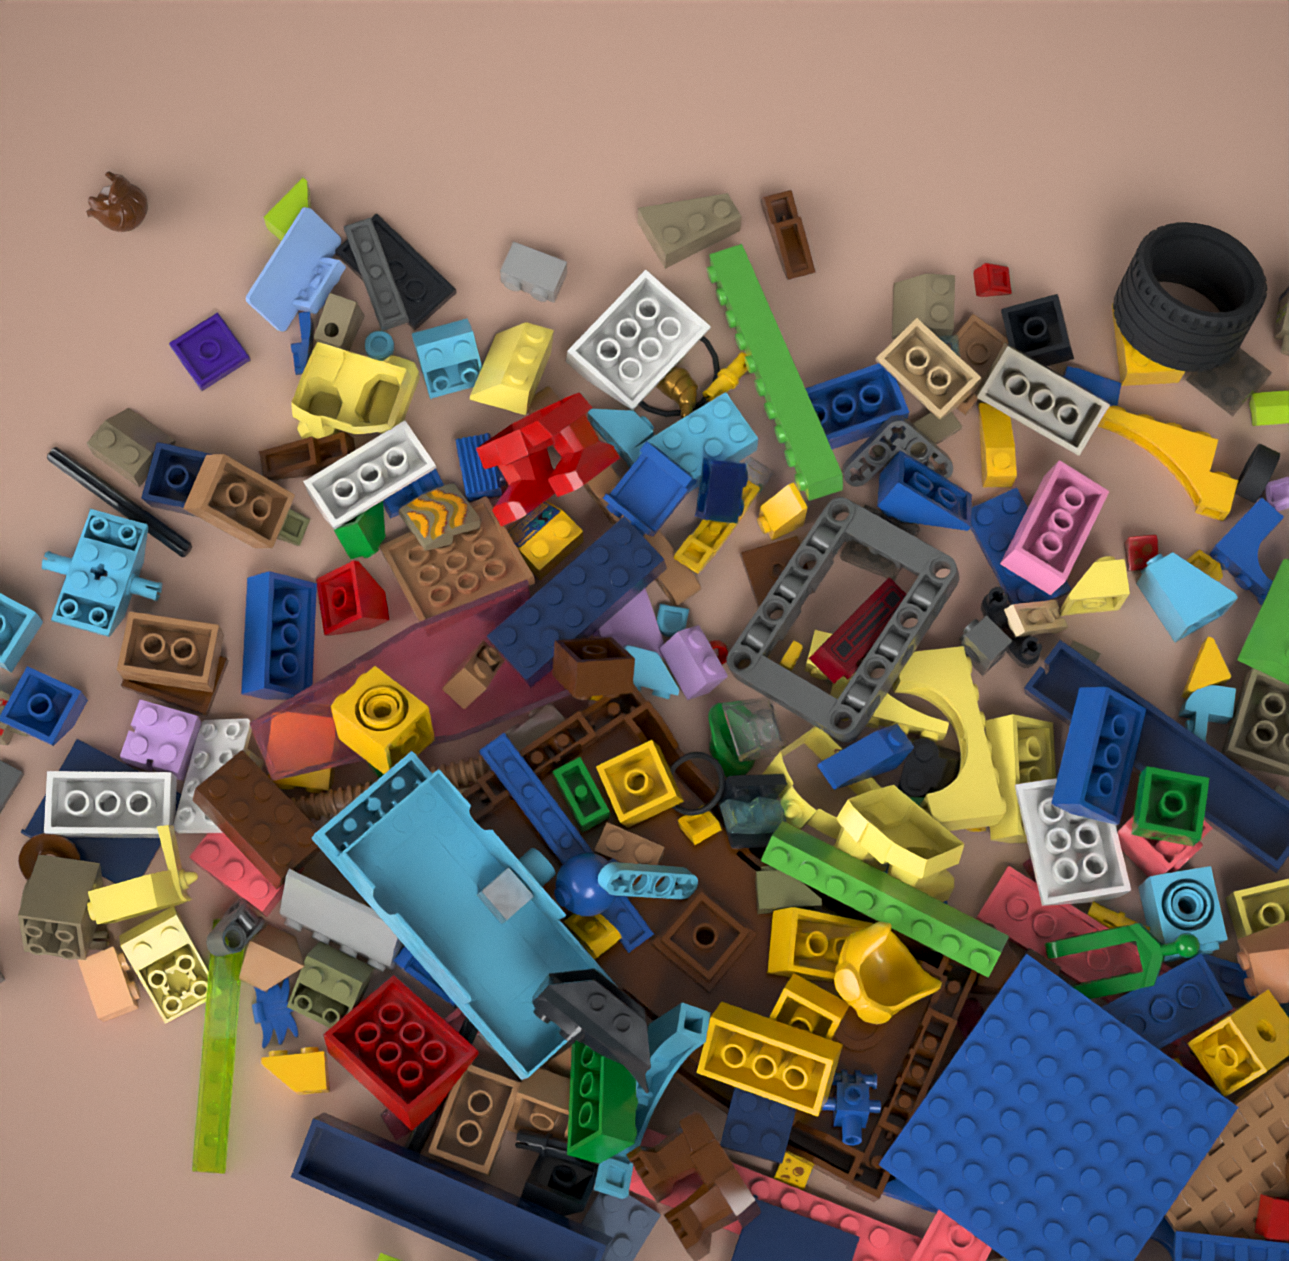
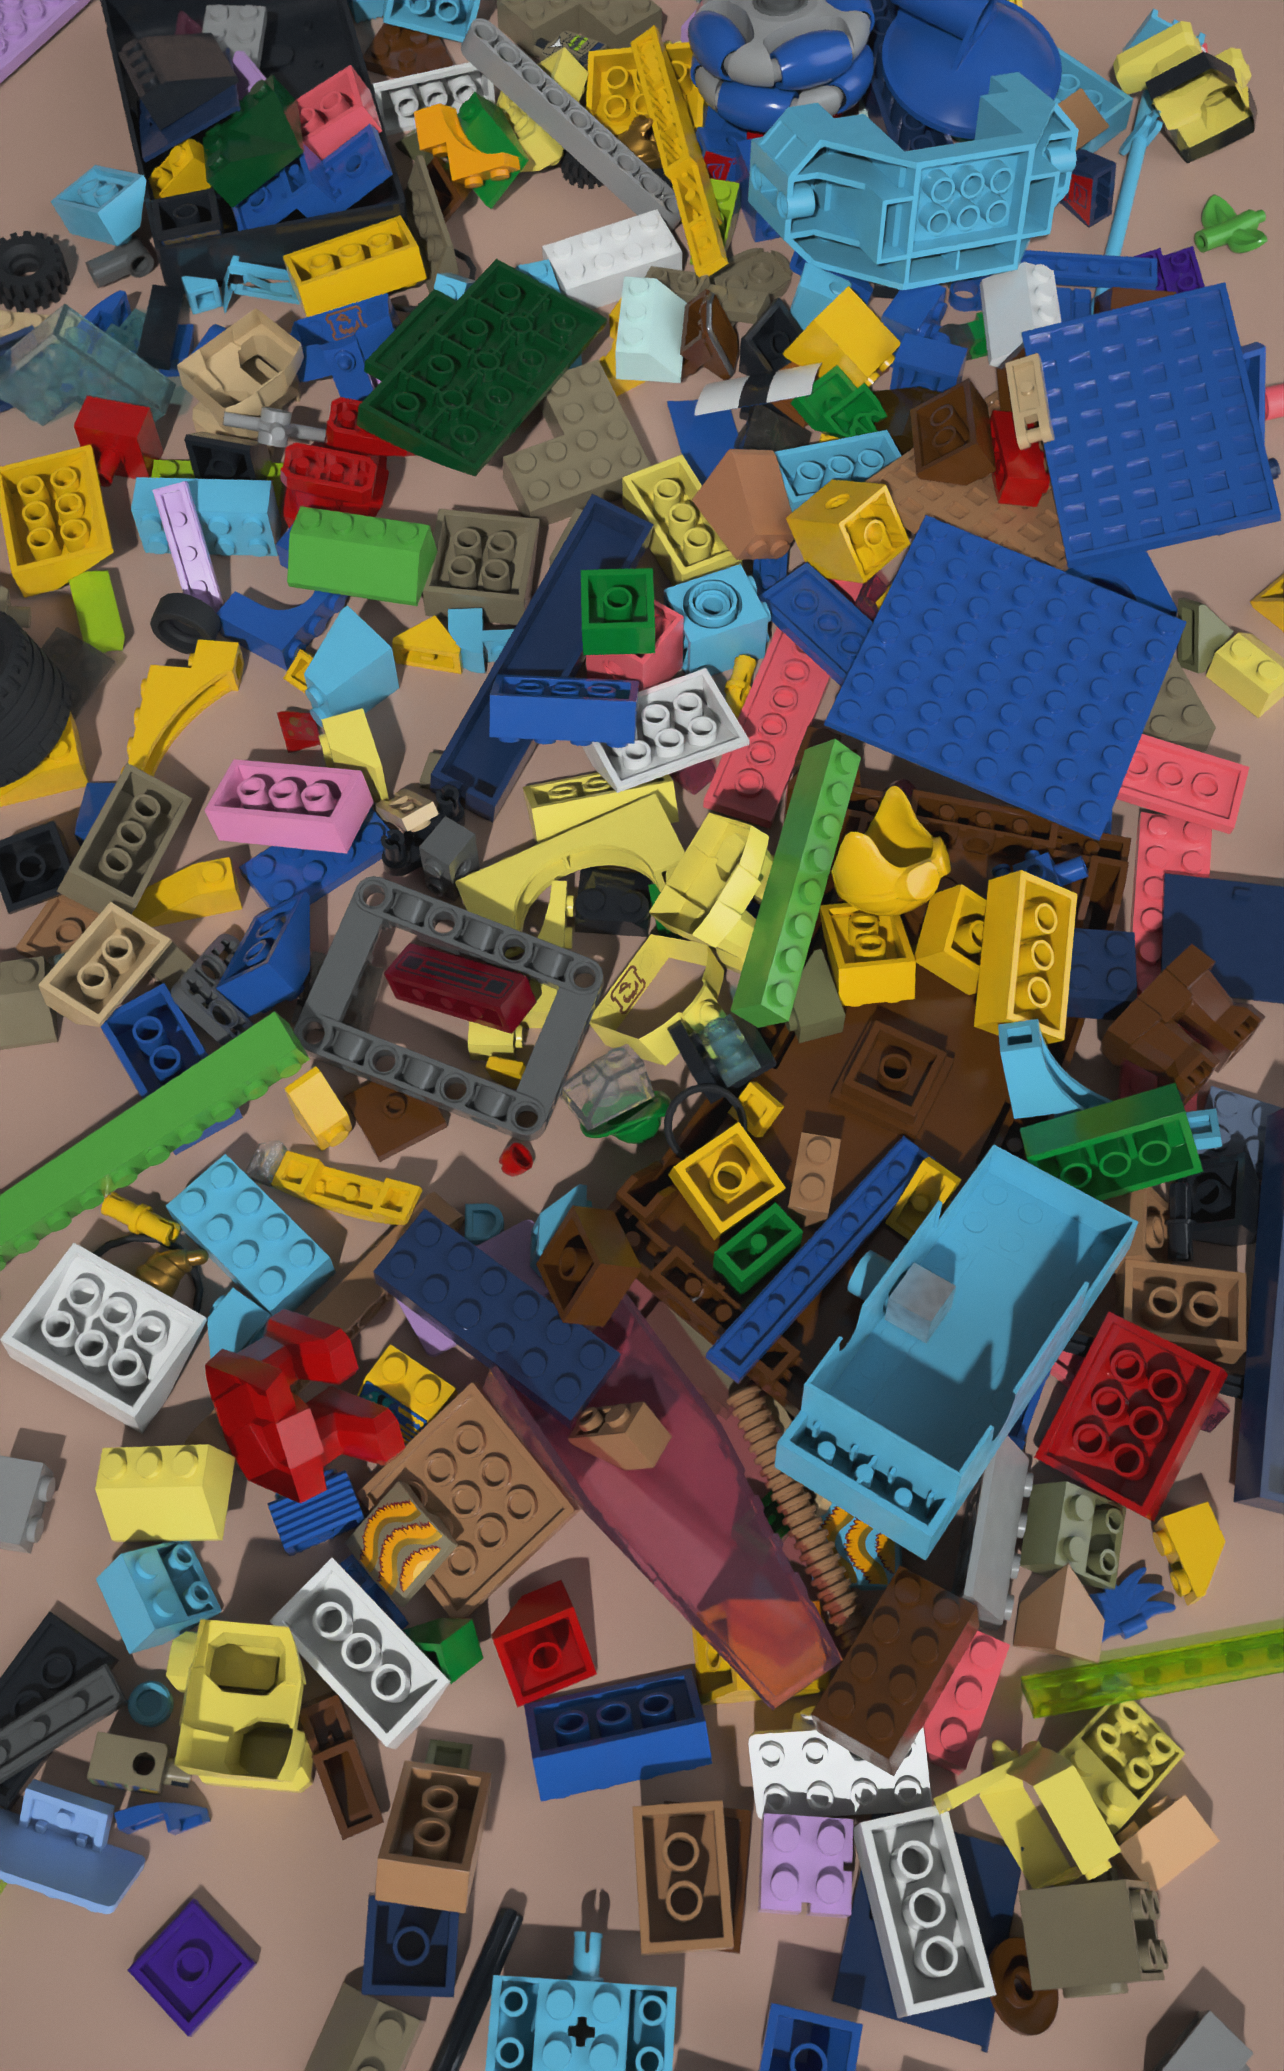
camera: 100 degrees left, 10 degrees down
(238, 925) = (1046, 1676): dark grey piece -> none
(382, 720) = (703, 1521): yellow brick -> none
(578, 885) = (876, 1206): blue brick -> none
(598, 1015) = (1049, 1145): black slope -> none
(646, 887) = (853, 1137): medium azure beam -> none
(650, 490) = (321, 1265): blue panel -> none
(693, 662) = (537, 1177): lavender brick -> none
(721, 490) = (305, 1182): clear blue brick -> none
(867, 757) = (618, 953): blue slope -> none
(1149, 948) = (768, 672): green piece -> none

